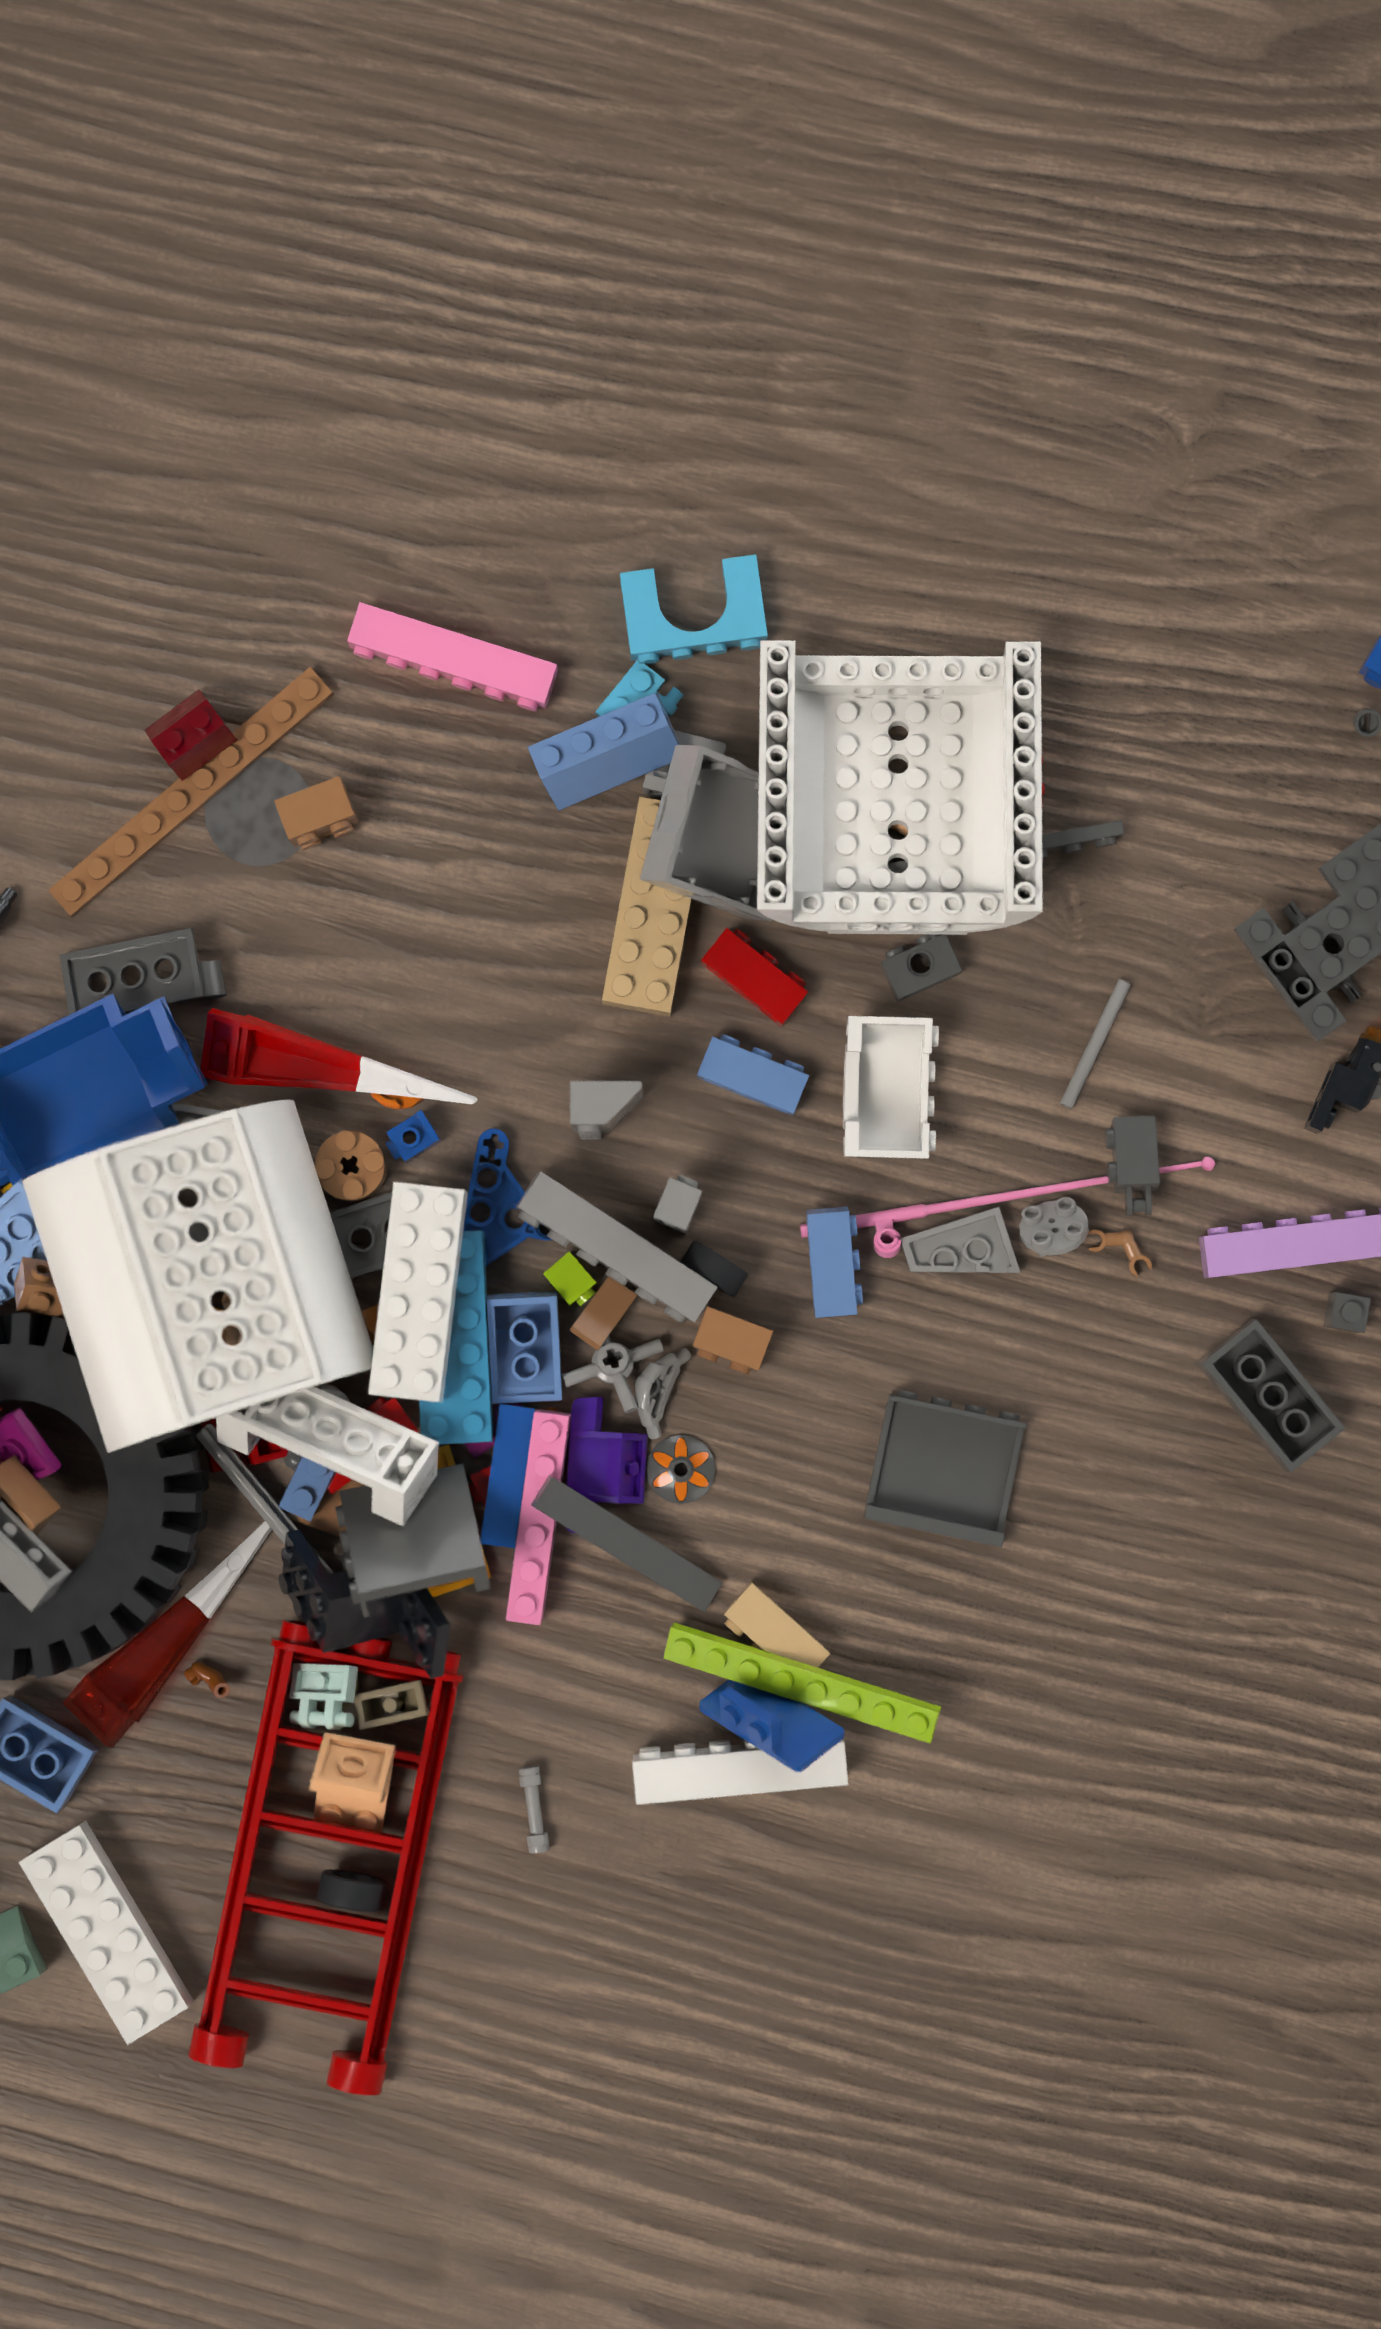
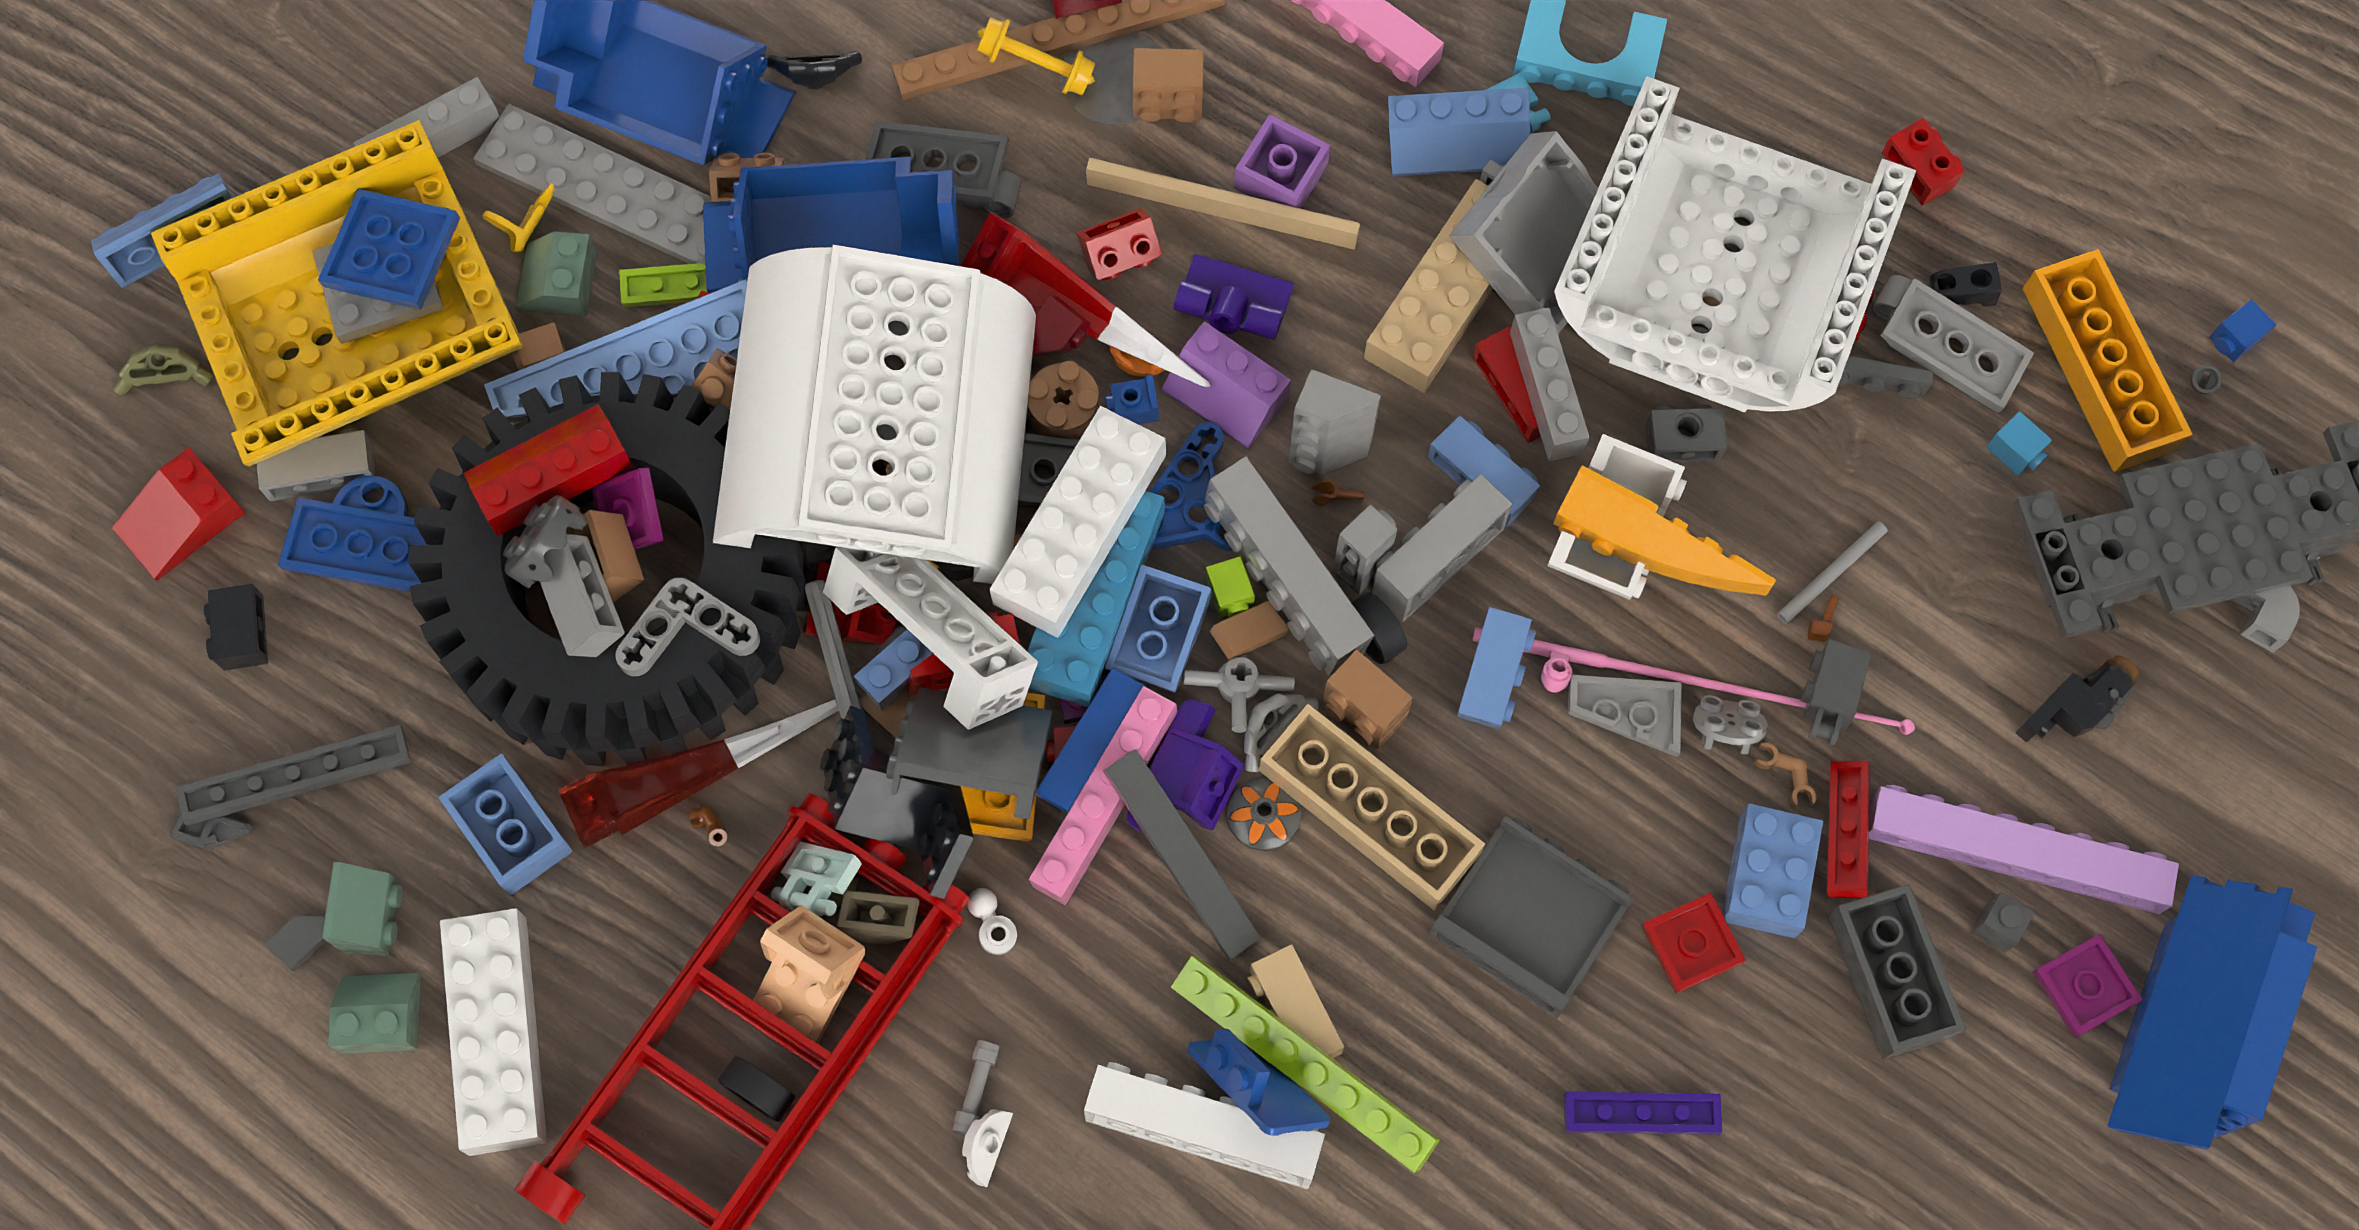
camera: 25 degrees right, 15 degrees down
(105, 1533) = (676, 616): none -> light grey beam
(136, 834) = (1077, 73): none -> yellow piece
(317, 1098) = (1058, 328): none -> dark red slope
(337, 990) = (1119, 244): none -> brick
(413, 907) = (1222, 203): none -> tan tile
(455, 851) = (1282, 164): none -> medium lavender brick
(461, 996) = (1233, 297): none -> dark purple panel
(474, 1651) = (983, 905): none -> white plate
(505, 1087) = (1242, 390): none -> medium lavender slope
(560, 1852) = (984, 1143): none -> white plate
(625, 1149) = (1331, 491): none -> dark orange hand
(743, 1171) = (1440, 547): none -> light grey brick
(772, 1432) = (1371, 807): none -> tan brick
(782, 980) = (1549, 384): none -> light grey brick
(917, 1095) = (1630, 529): none -> light orange wedge
(1039, 608) = (1922, 149): none -> red brick
(1079, 755) = (1907, 301): none -> light grey hinge
(1090, 1436) = (1693, 943): none -> red plate
(1099, 1601) = (1642, 1113): none -> dark purple plate
(1103, 1103) = (1820, 629): none -> dark orange hand
(1122, 715) = (1969, 284): none -> black leg
(1135, 1347) = (1772, 871): none -> medium blue brick
(1188, 1285) = (1848, 829): none -> red plate
(1221, 855) = (2020, 444): none -> dark azure brick
(1272, 743) = (2106, 361): none -> light orange brick

